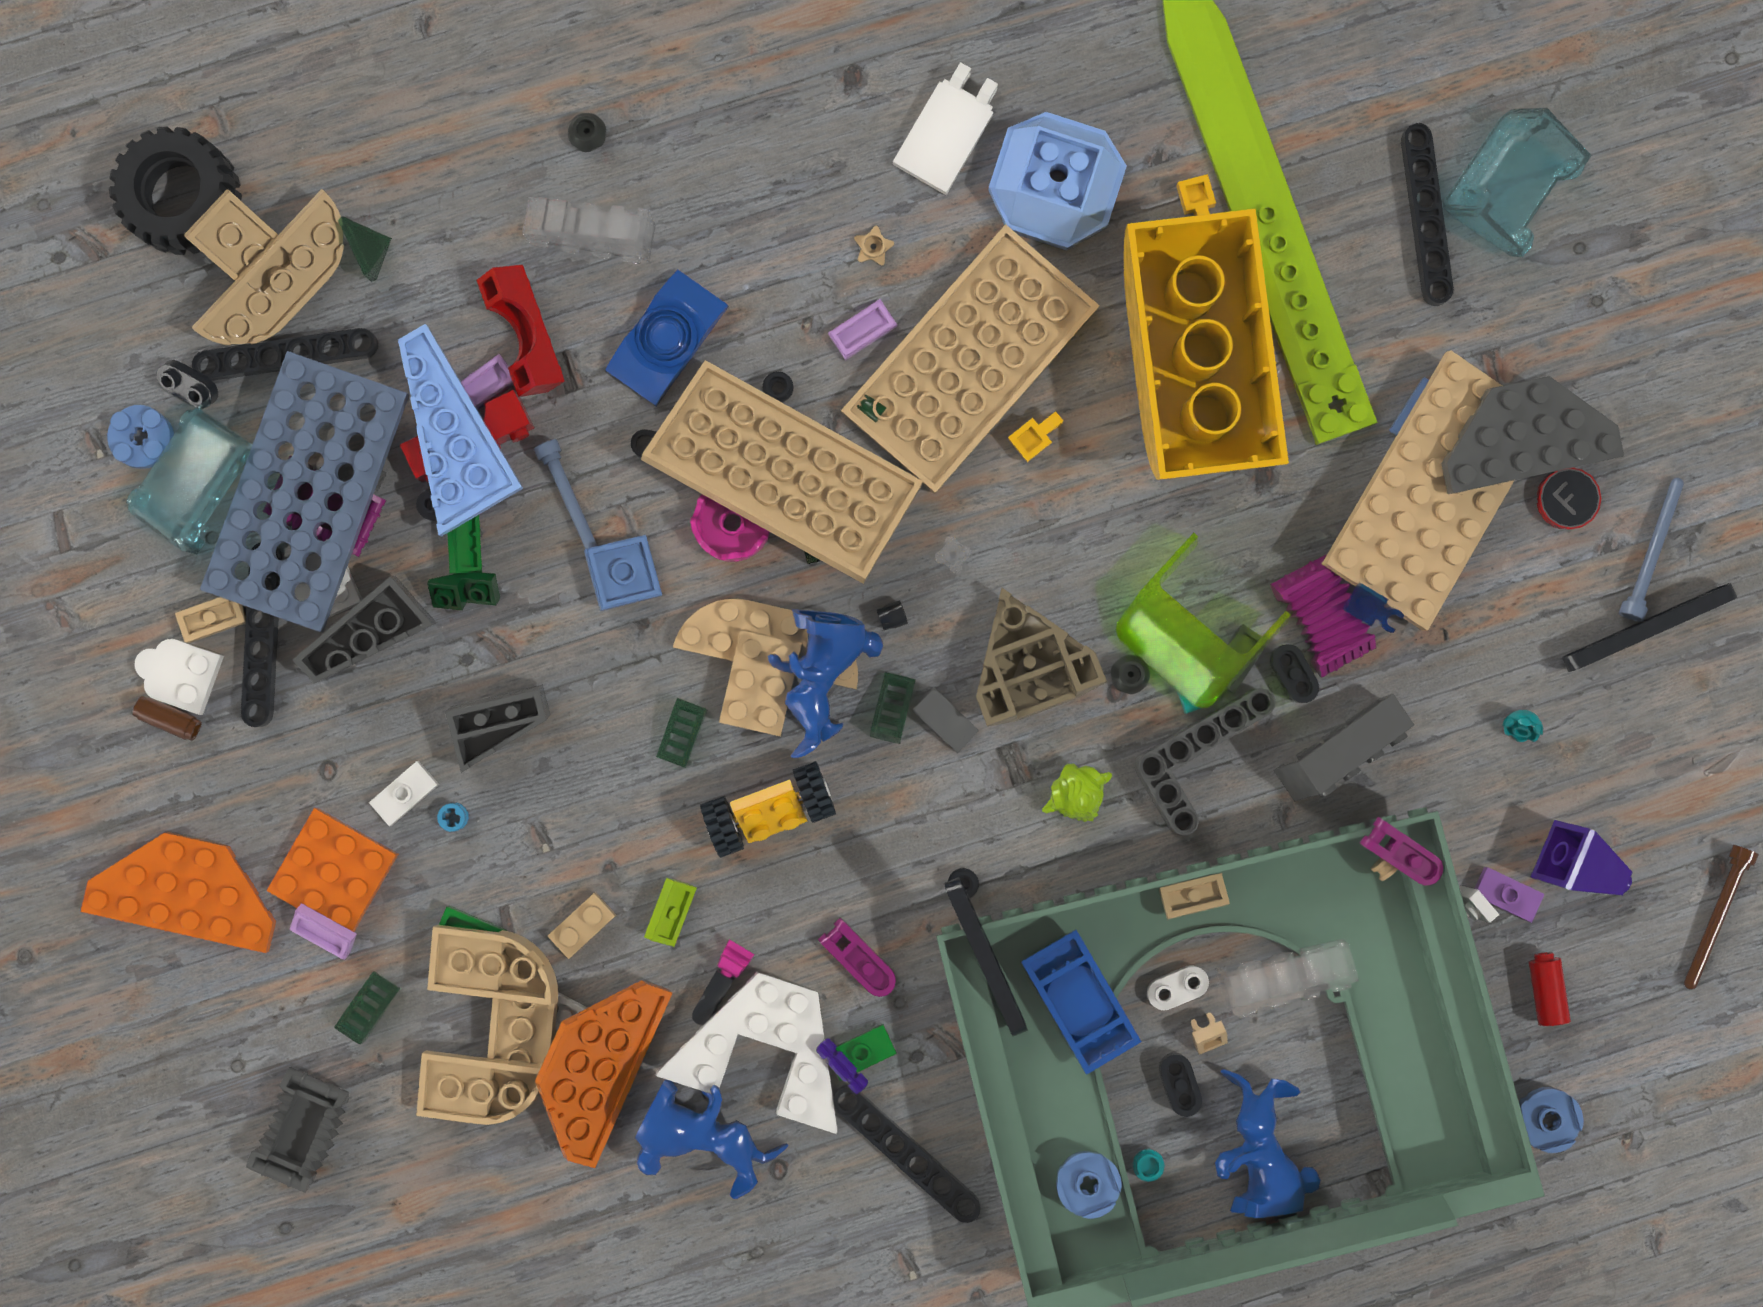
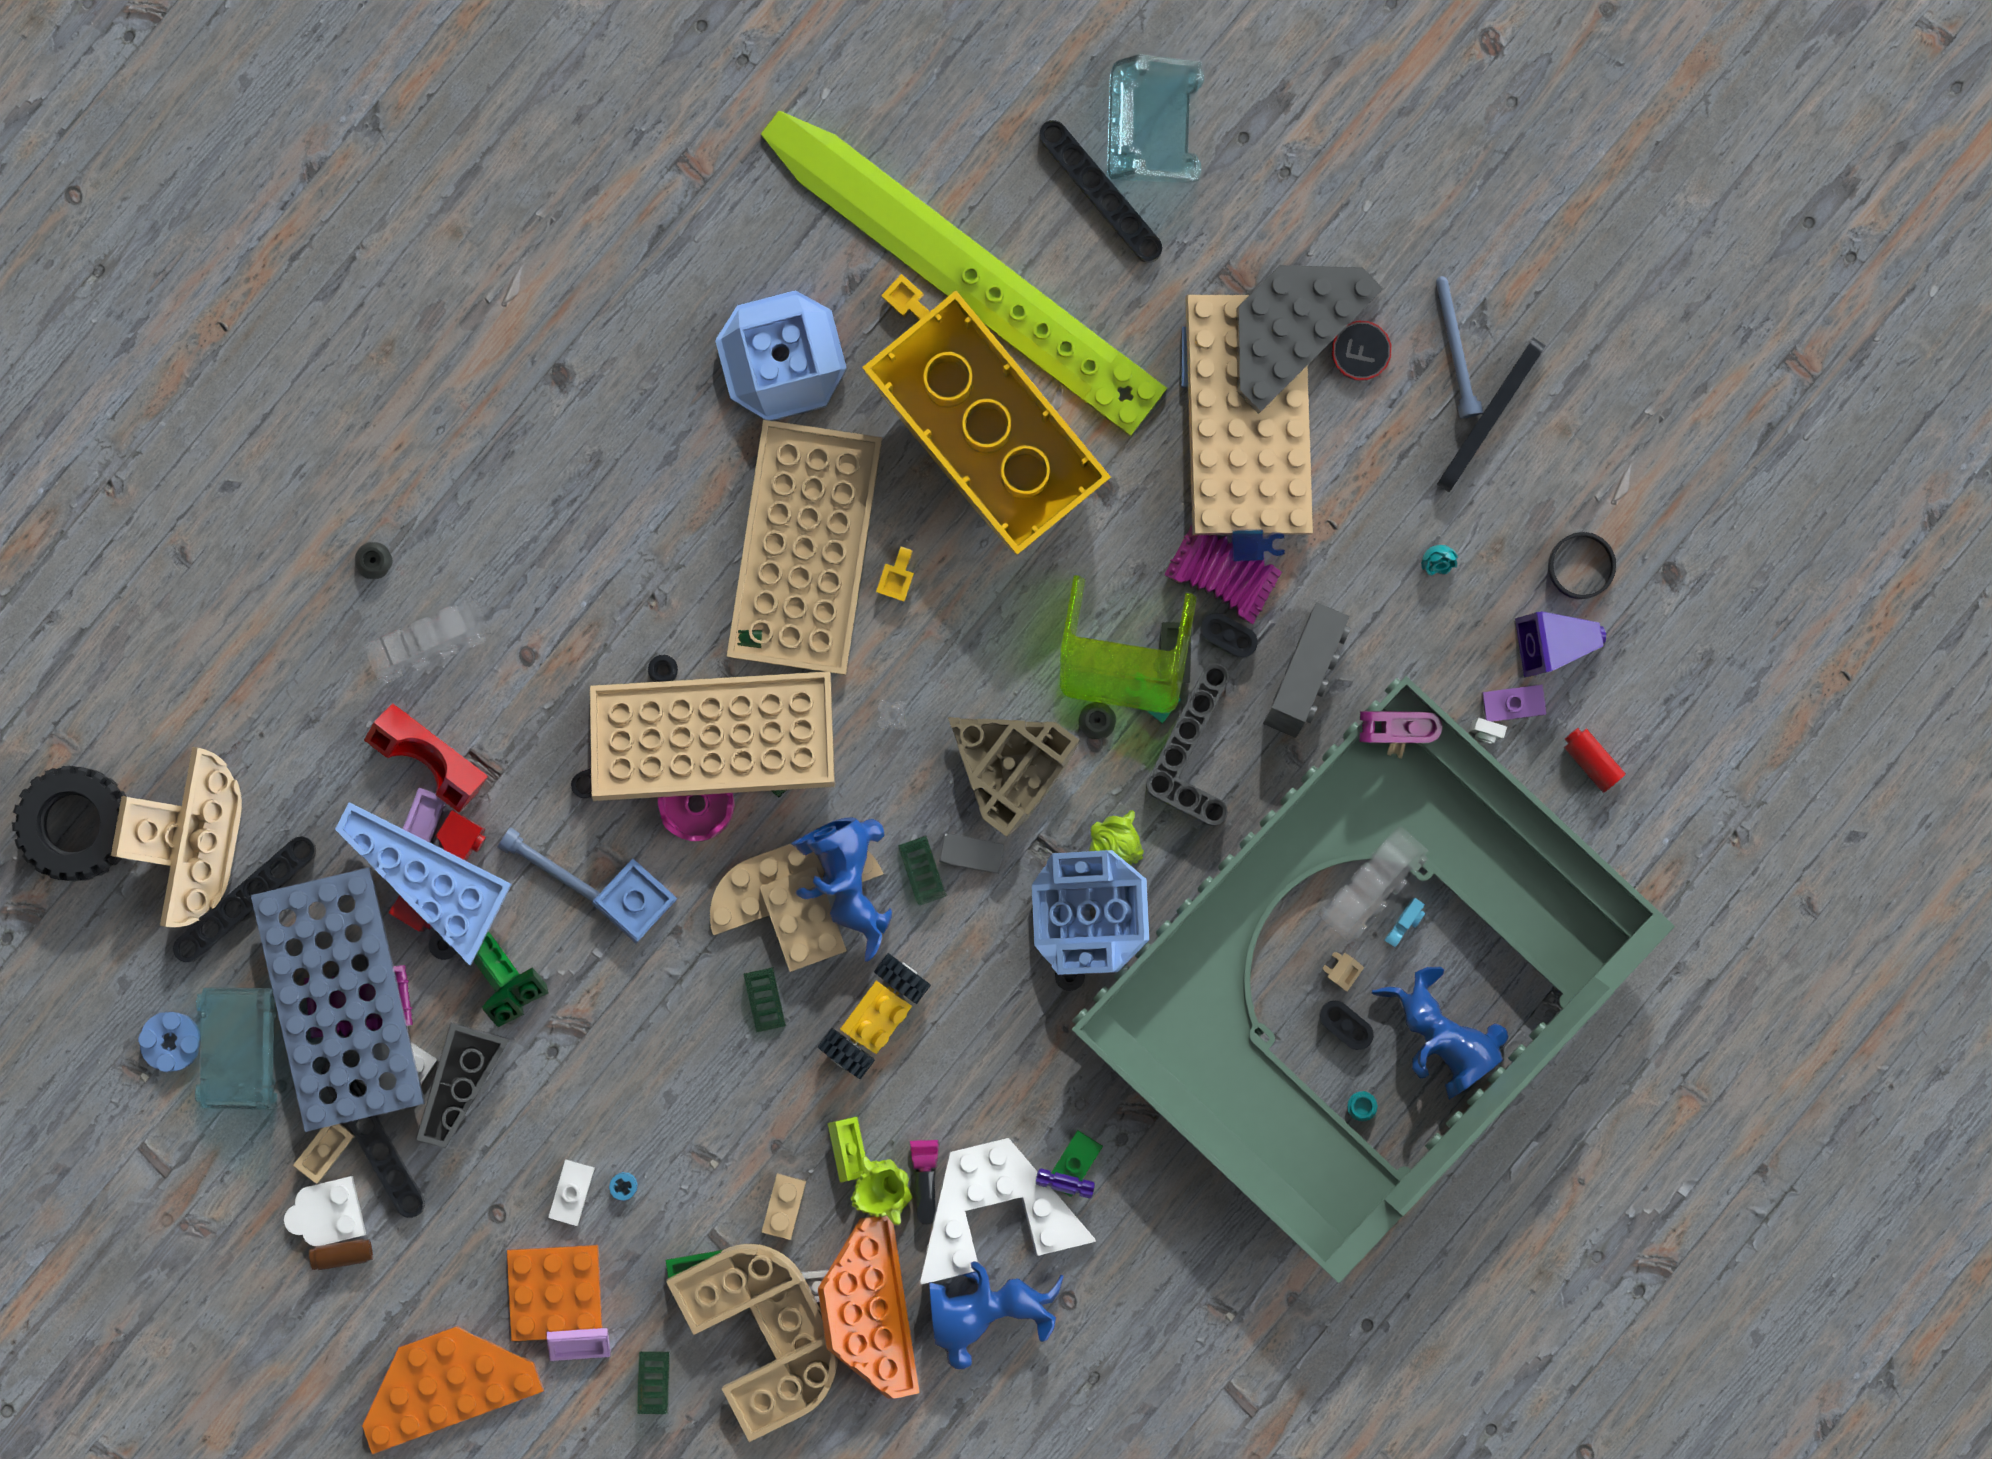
camera: 25 degrees left, 0 degrees up
(187, 384) = (181, 973): black plate -> none
(367, 245) = (255, 768): clear green slope -> none
(492, 722) = (609, 1086): dark grey wedge -> none
(666, 337) = (546, 687): blue slope -> none
(676, 967) = (881, 1190): none -> lime hair
(859, 959) = (1025, 1090): magenta plate -> none
(862, 329) = (701, 578): lavender tile -> none
(867, 240) = (658, 504): tan plate -> none
(892, 615) = (874, 796): black hose -> none
(903, 1157) = (1163, 1217): black beam -> none
(946, 131) = (666, 373): white tile -> none
(985, 956) = (1121, 1020): black beam -> none
(987, 836) = (1062, 912): none -> light blue piece
(1081, 1001) = (1221, 1008): blue slope -> none
(1105, 1192) = (1336, 1147): medium blue plate -> none
(1178, 987) = (1295, 948): white plate -> none
(1194, 896) = (1260, 866): tan plate -> none
(1297, 1024) = (1410, 917): none -> medium azure plate
(1564, 1129) = (1677, 863): medium blue plate -> none
(1676, 804) = (1612, 560): none -> black tyre
(1741, 860) = (1683, 556): reddish brown piece -> none

